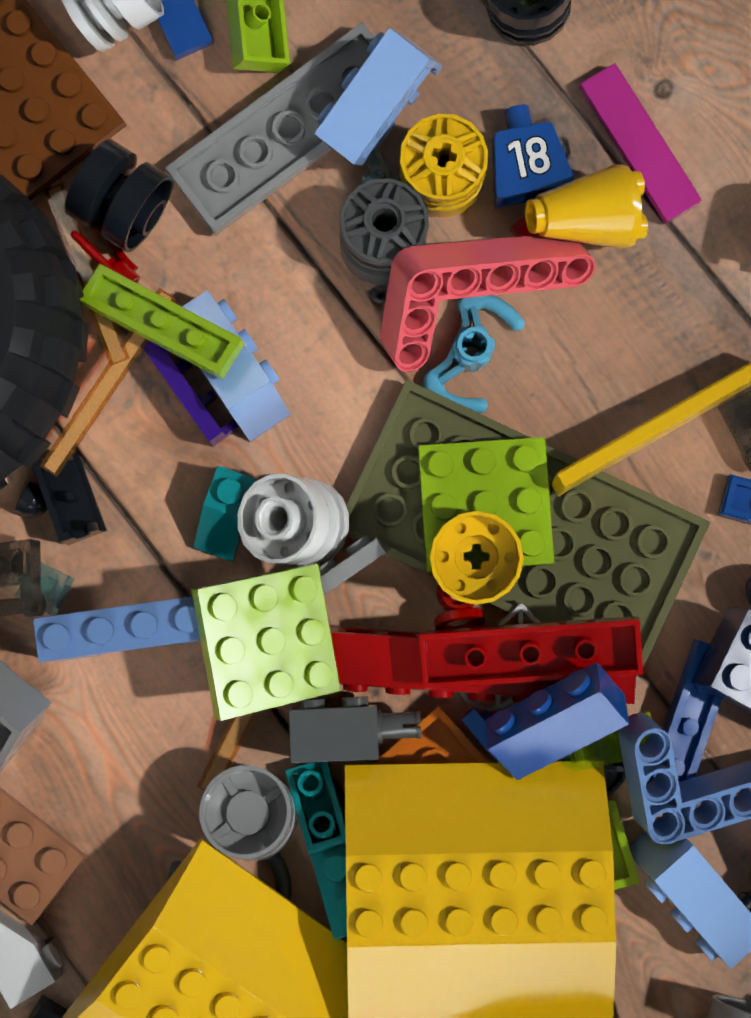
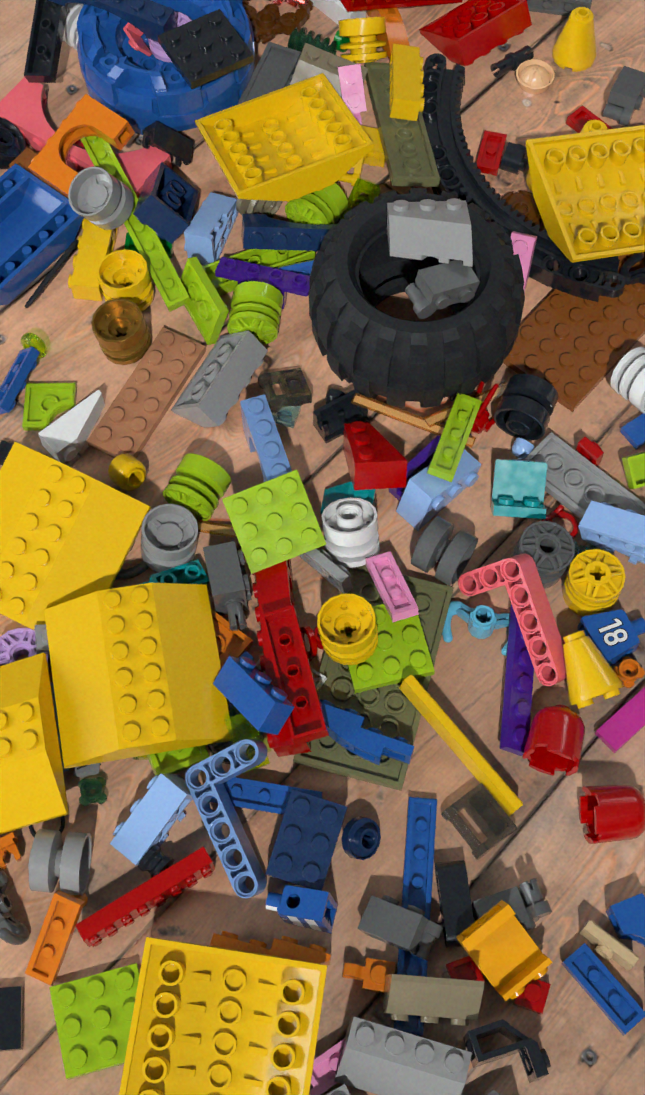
camera: 75 degrees right, 20 degrees down
(106, 865) = (127, 472): none -> yellow head
(163, 755) = (197, 486): none -> lime wheel
(171, 463) = (372, 459): none -> red wedge
(184, 220) = (522, 448): none -> light blue hinge
(211, 115) = (590, 451): none -> red plate
(264, 242) = (519, 489): none -> teal bracket
(304, 188) = (558, 512): none -> red piece
(342, 390) = (436, 546): none -> dark grey wheel
(401, 474) = (391, 586): none -> bright pink plate
(584, 140) = (635, 669): none -> orange plate
(589, 321) = (517, 691): none -> dark purple plate
(619, 584) = (370, 743): none -> blue slope
(642, 993) = (87, 785): none -> clear green plate
(678, 282) = (555, 740): none -> red cylinder

